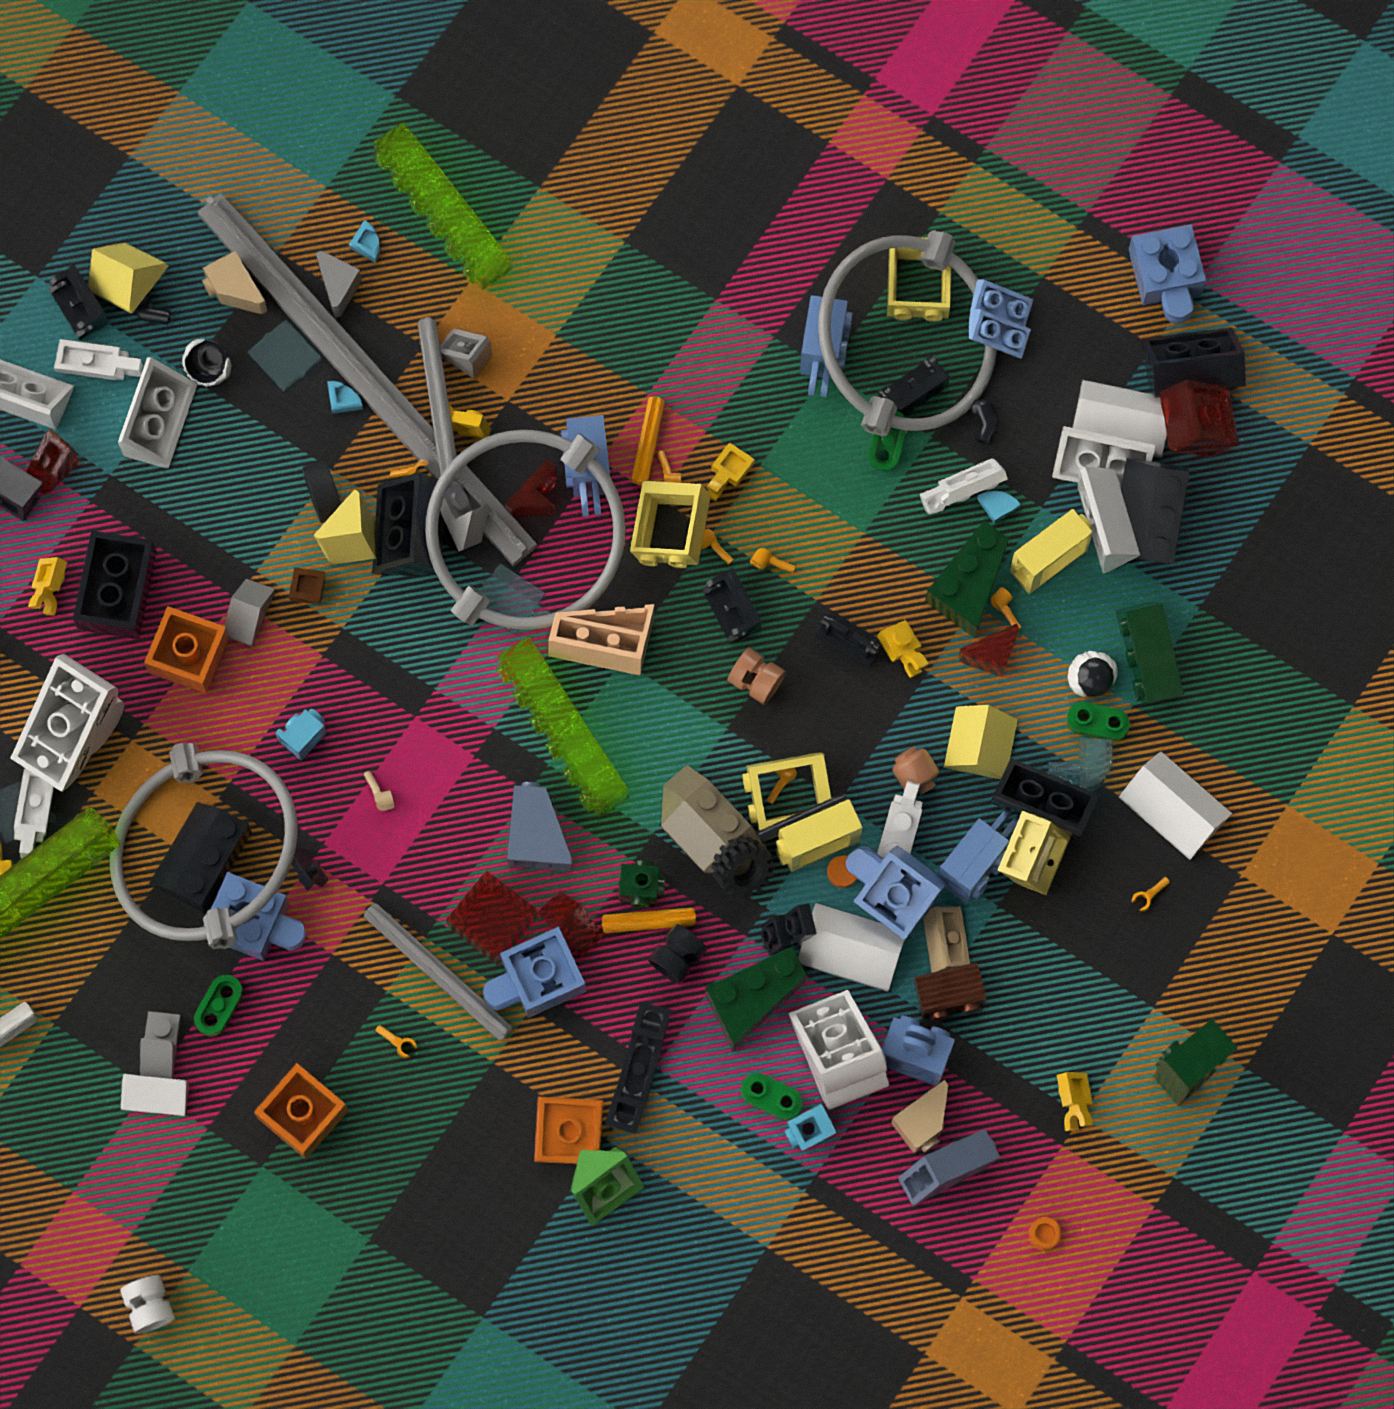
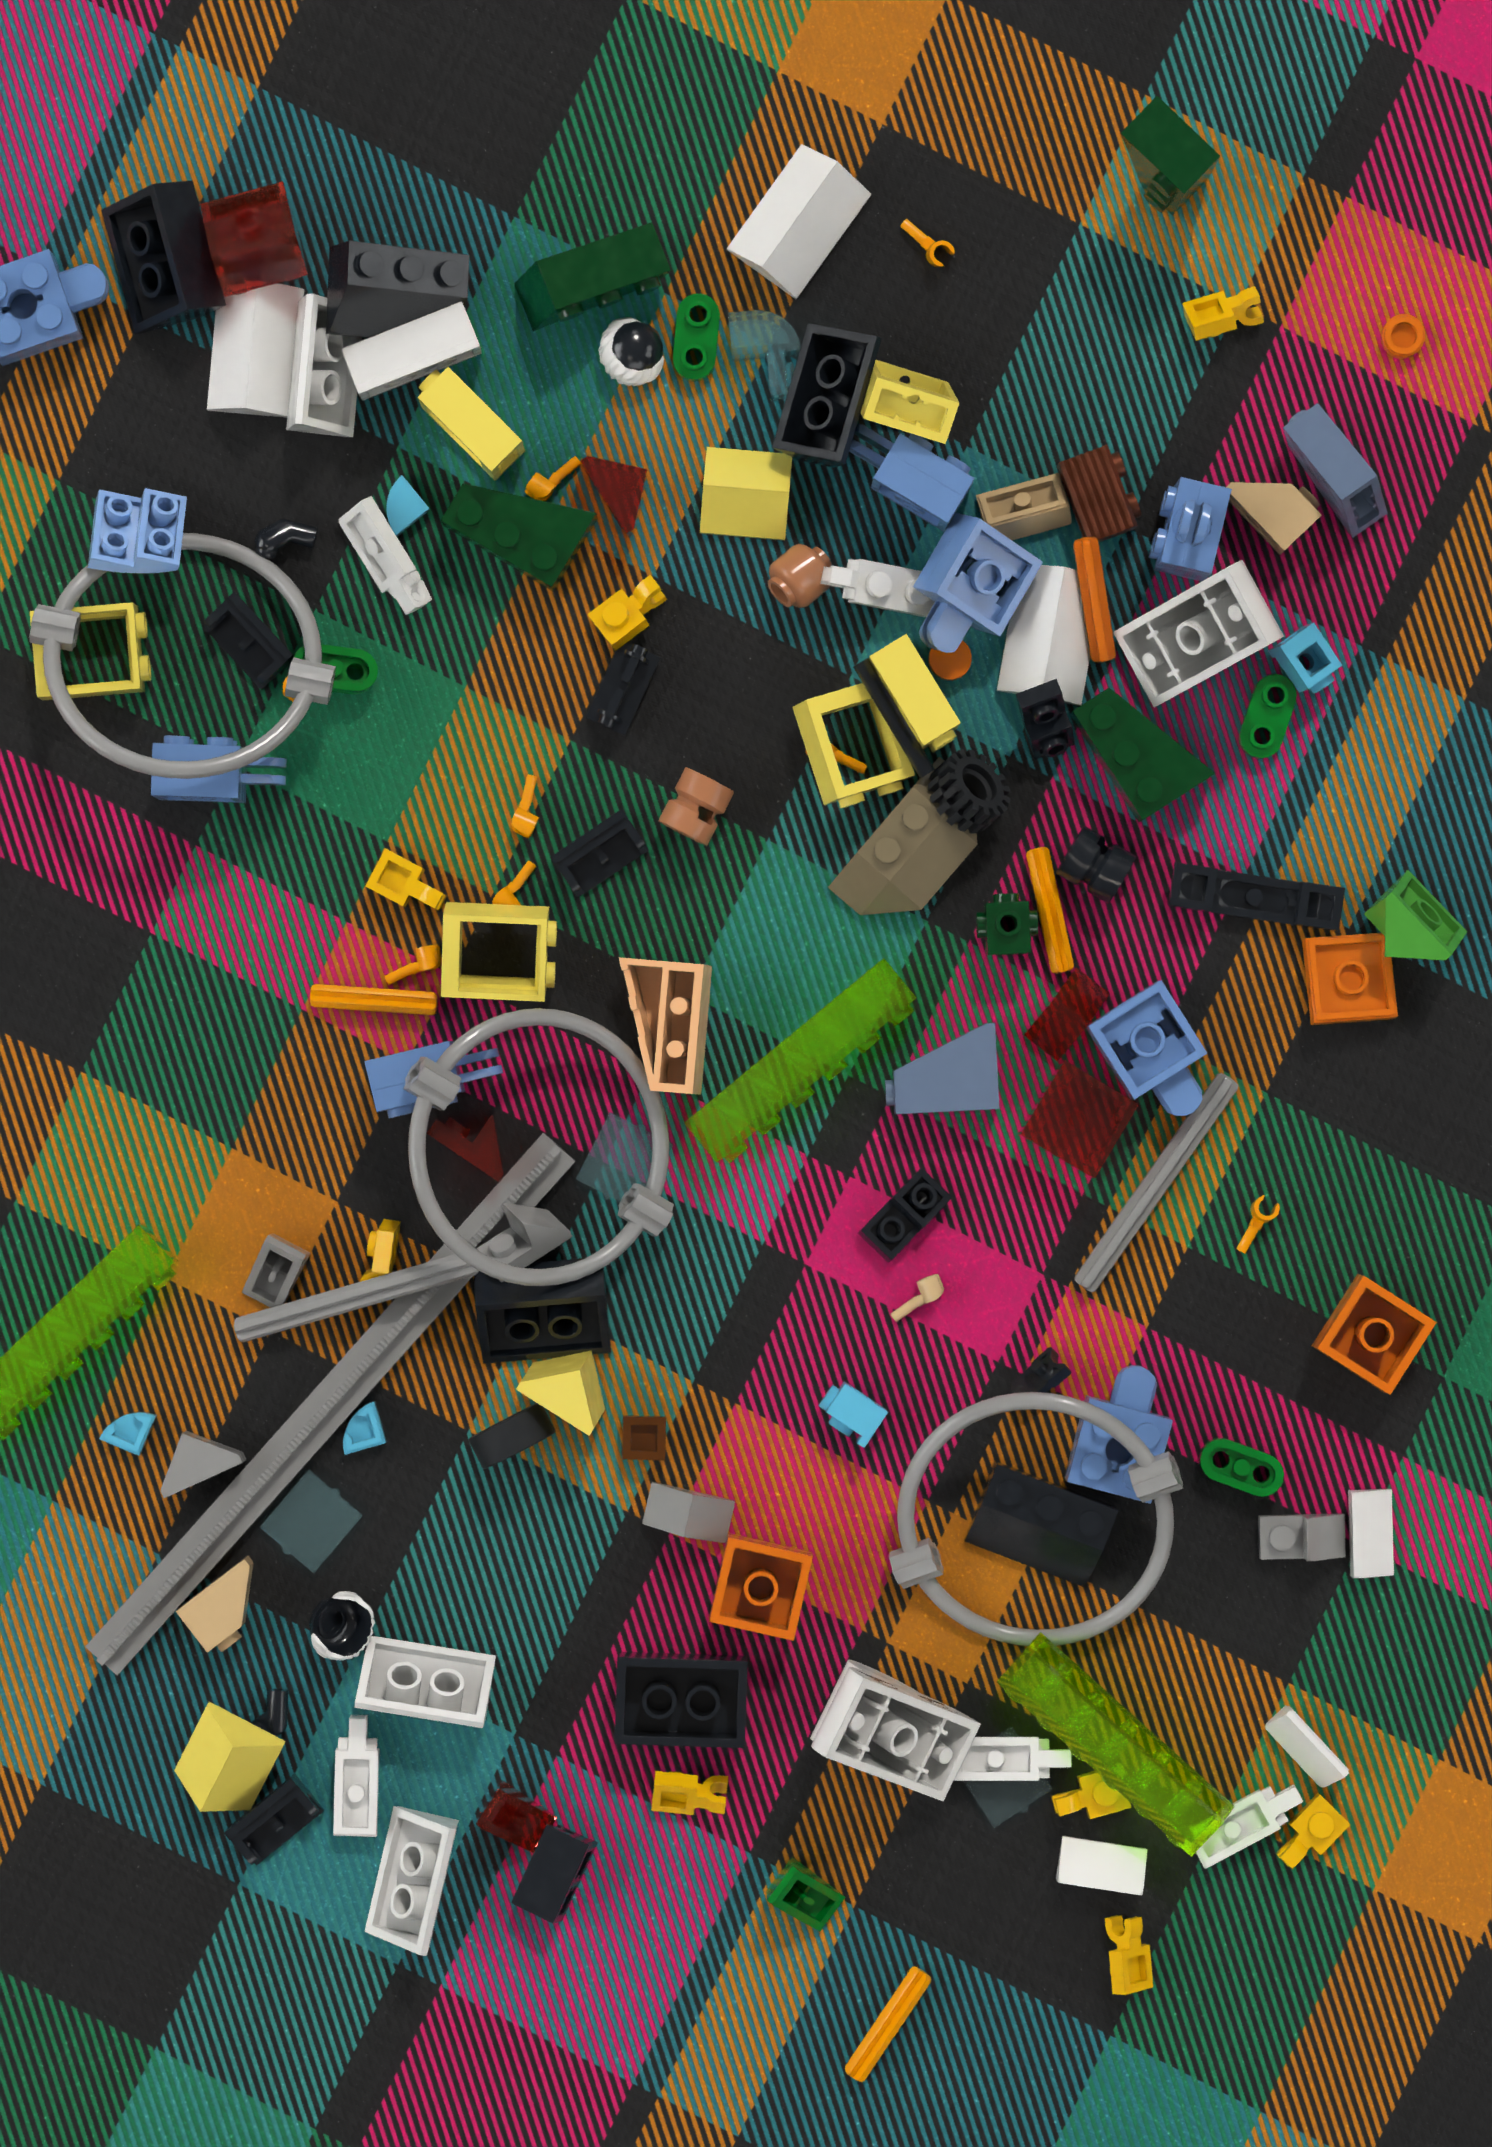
camera: 100 degrees left, 15 degrees up
(411, 470) = (461, 1315): light orange hand -> none
(440, 789) = (905, 1215): none -> black slope
(873, 976) = (1094, 599): none -> orange axle

